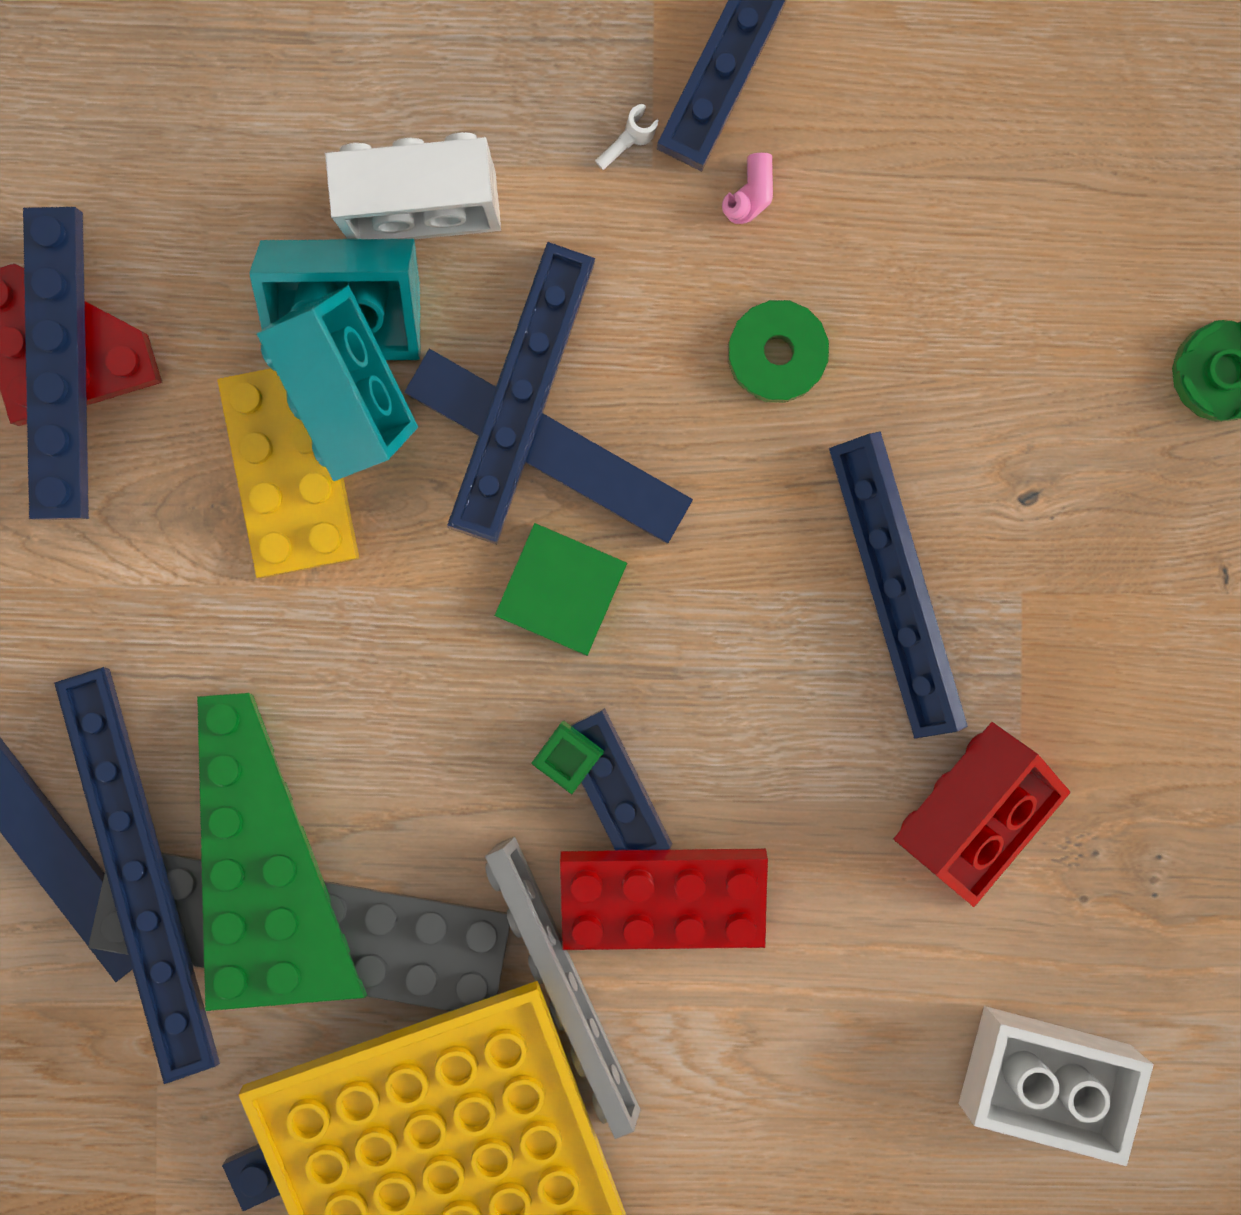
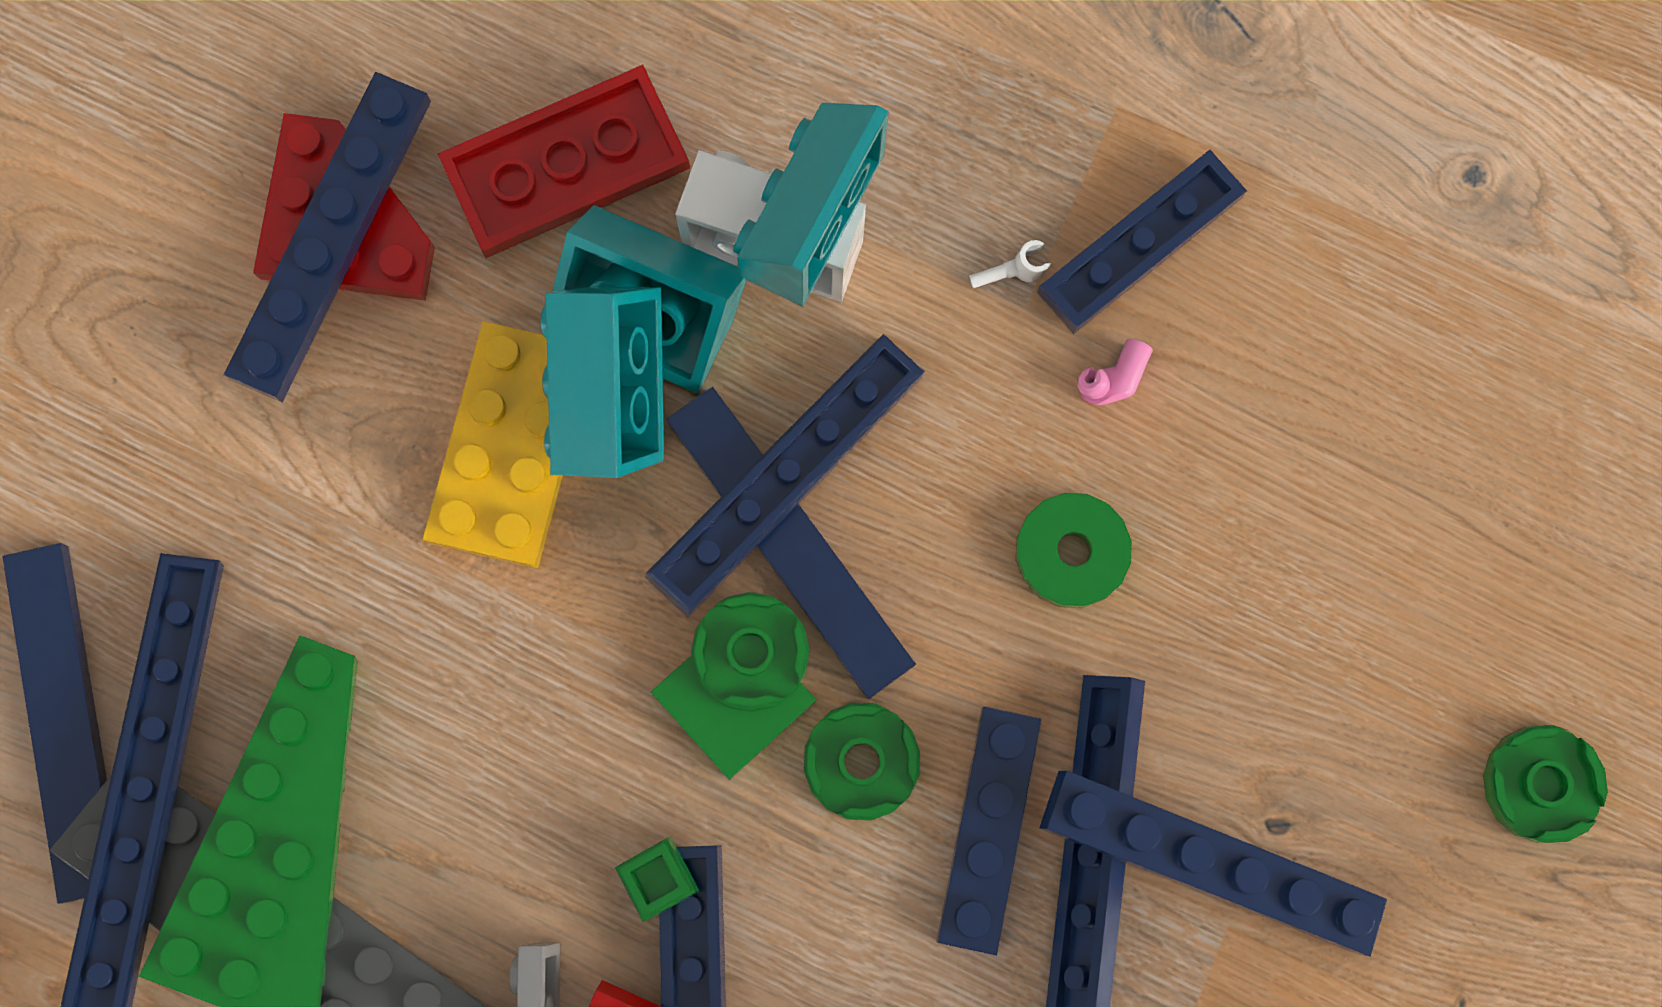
camera: 15 degrees right, 10 degrees down
(218, 212) = (564, 161): none -> red plate
(439, 150) = (812, 198): none -> teal slope
(558, 548) = (750, 651): none -> green tile
(709, 577) = (869, 726): none -> green tile
(806, 602) = (989, 831): none -> dark blue plate
(991, 550) = (1213, 863): none -> dark blue plate

